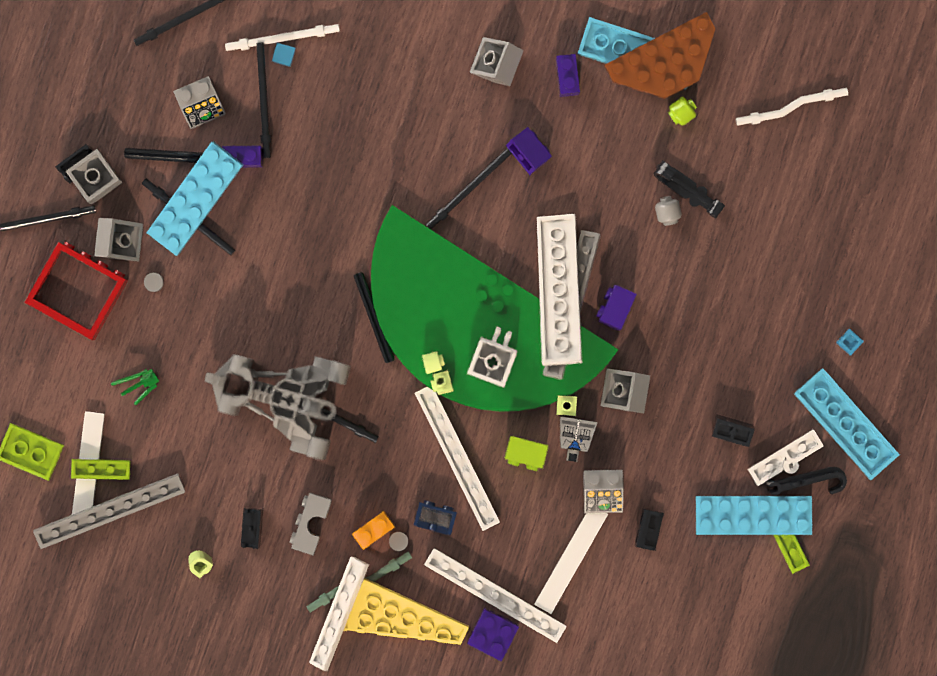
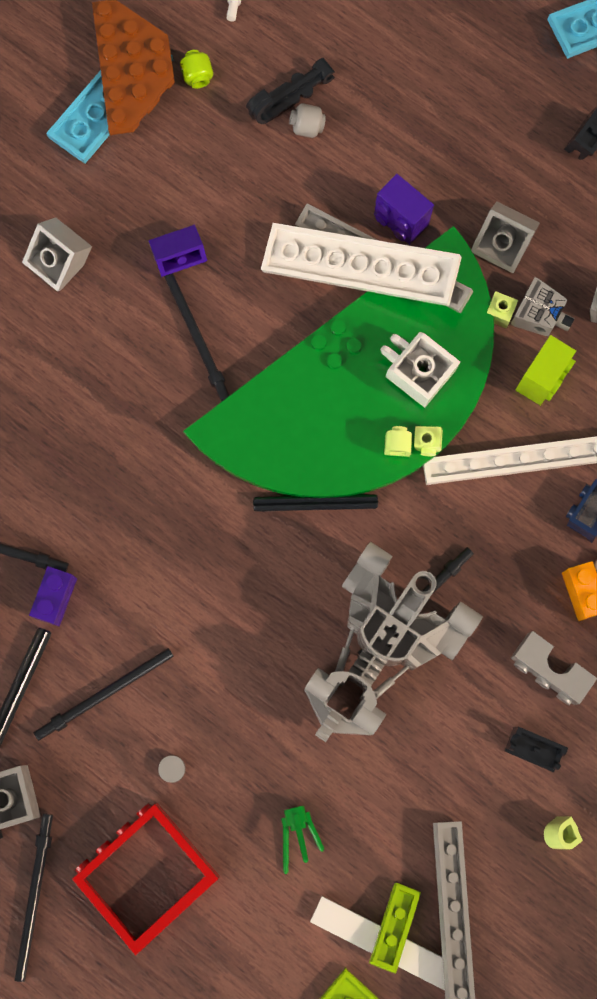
camera: 70 degrees left, 10 degrees down
(118, 239) = (99, 796): light grey slope -> none
(195, 198) = (83, 675): medium azure plate -> none
(567, 75) = (105, 178): dark purple brick -> none

